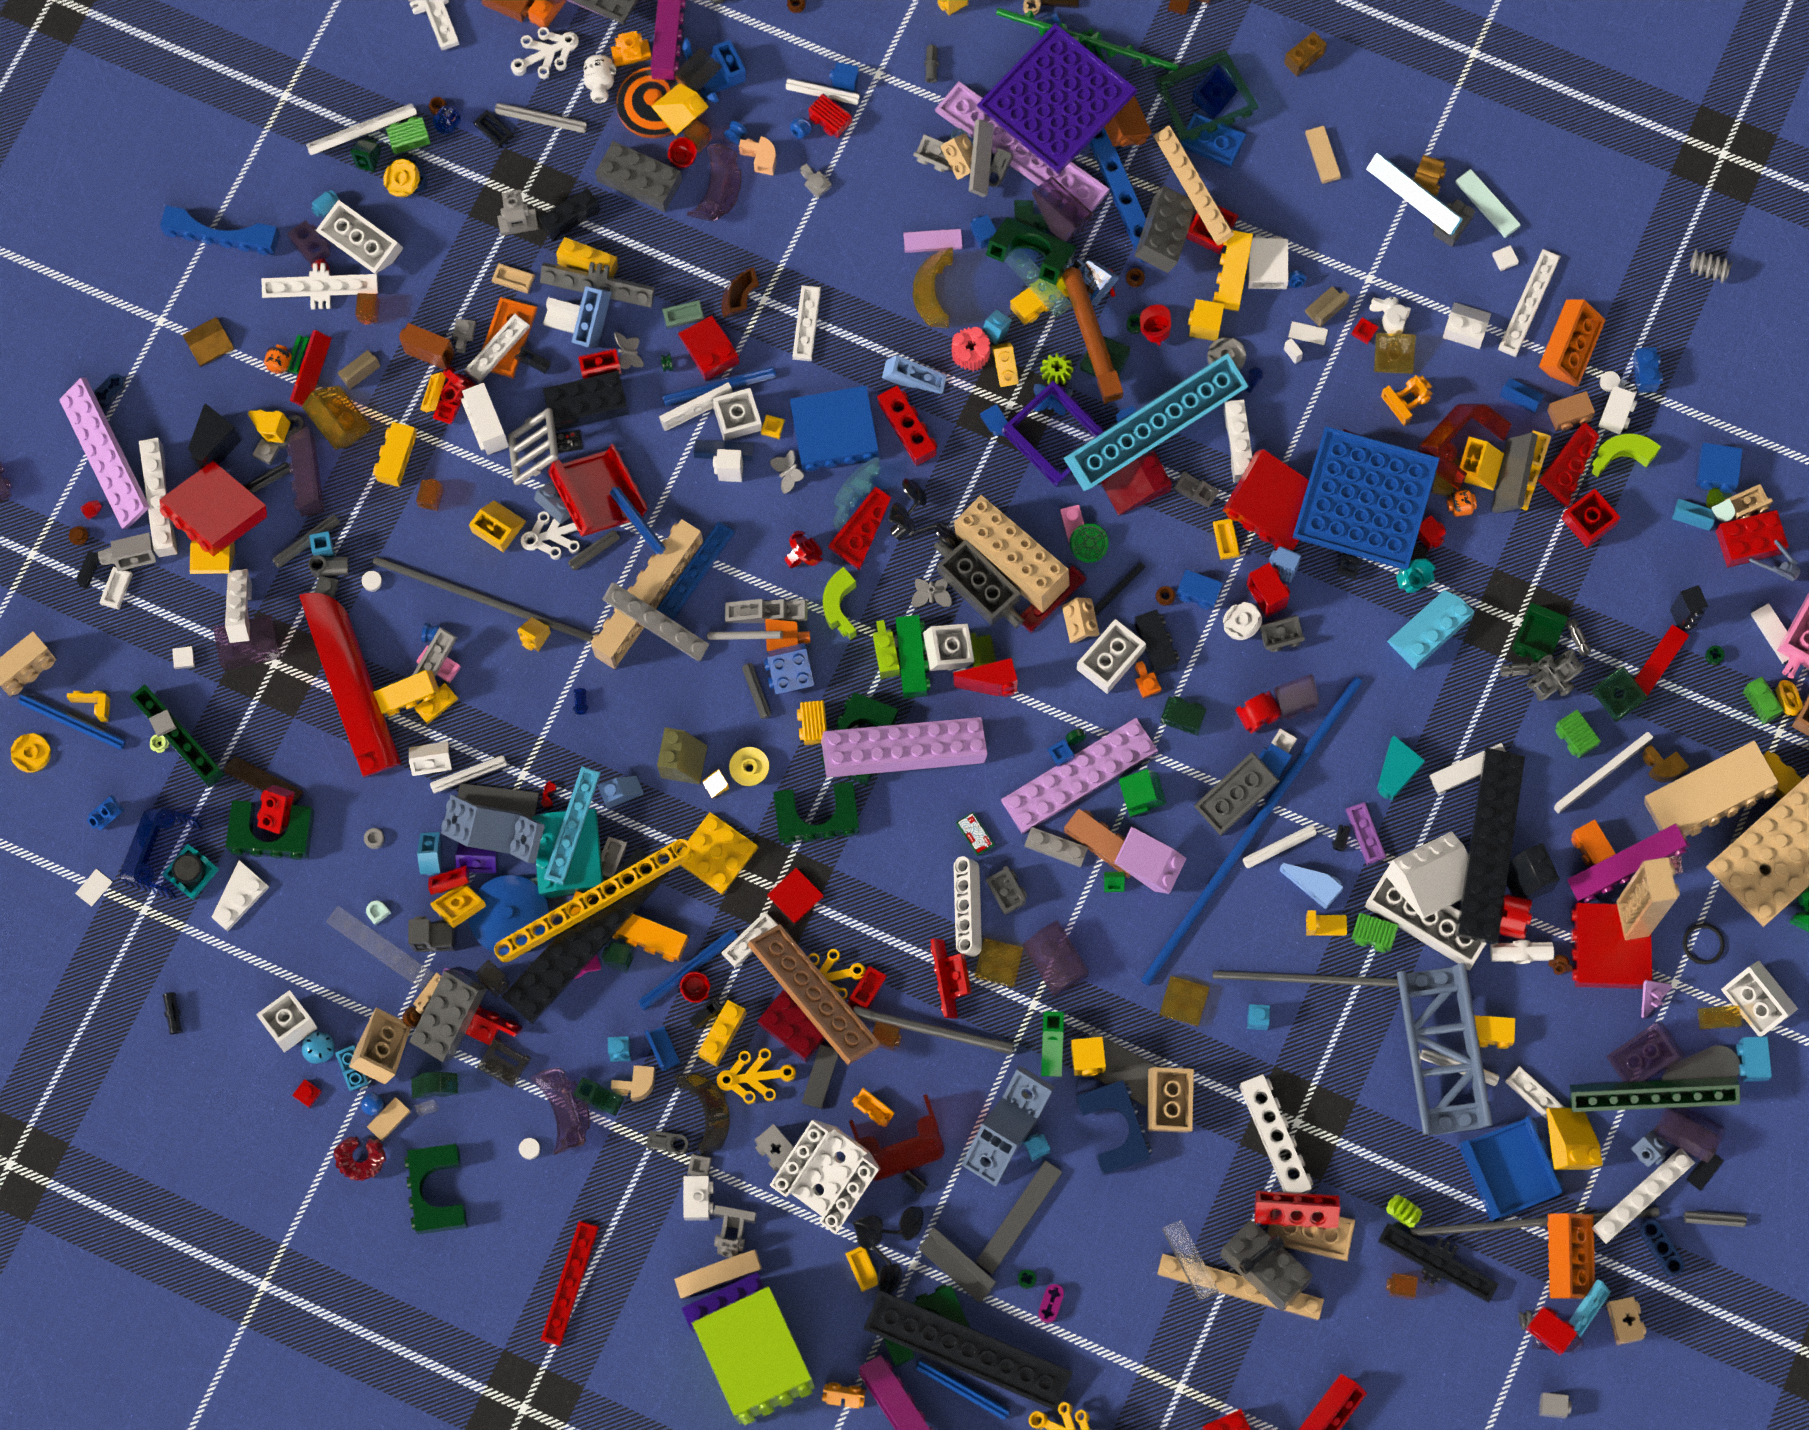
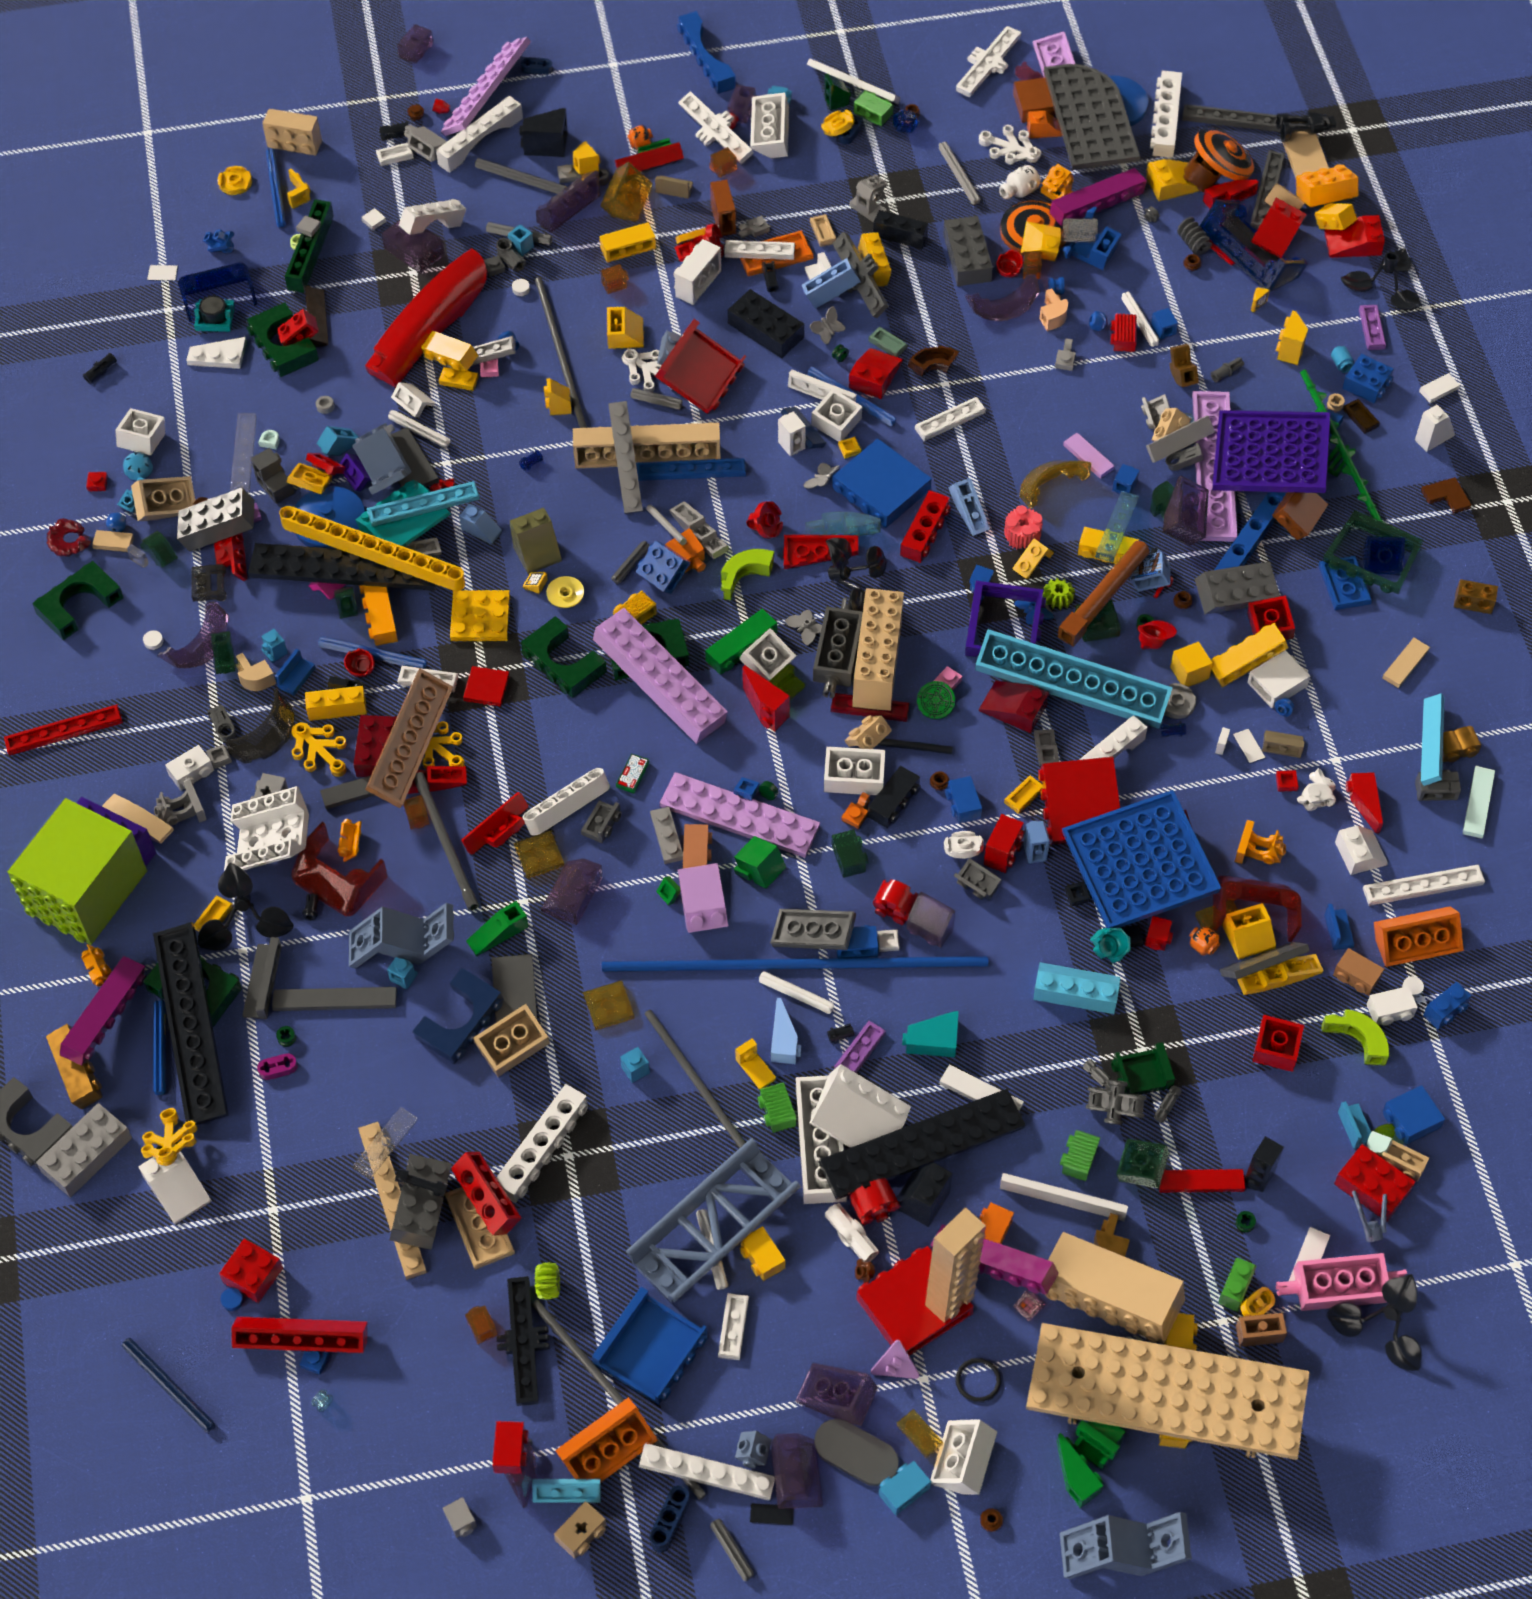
camera: 50 degrees right, 15 degrees down
(205, 563) = (462, 183): yellow slope -> none
(208, 341) = (619, 96): pearl gold slope -> none
(212, 508) = (492, 160): red brick -> none
(493, 978) = (267, 528): clear smoke brick -> none
(503, 139) = (923, 162): black tile -> none
(515, 448) = (699, 308): light grey bar -> none
(569, 441) = (726, 334): black sticker -> none
(599, 363) = (801, 310): red brick -> none
(637, 520) = (696, 400): blue axle -> none
(885, 651) = (729, 619): lime hinge -> none
(905, 99) = (1181, 367): none -> pearl gold brick
(996, 326) = (1055, 532): dark azure brick -> none
(1016, 235) = (1140, 497): dark green arch -> none
(1088, 1056) = (503, 957): yellow head -> none
(1193, 185) = (1290, 583): tan plate -> none
(1394, 353) = (1288, 813): clear yellow slope -> none
(1424, 284) = (1365, 798): none -> red slope
(1505, 258) = (1444, 843): white tile -> none
(1564, 471) = (1306, 1000): red wing -> none
(1572, 1140) = (712, 1377): yellow slope -> none
(1654, 1094) = (803, 1418): dark green brick -> none

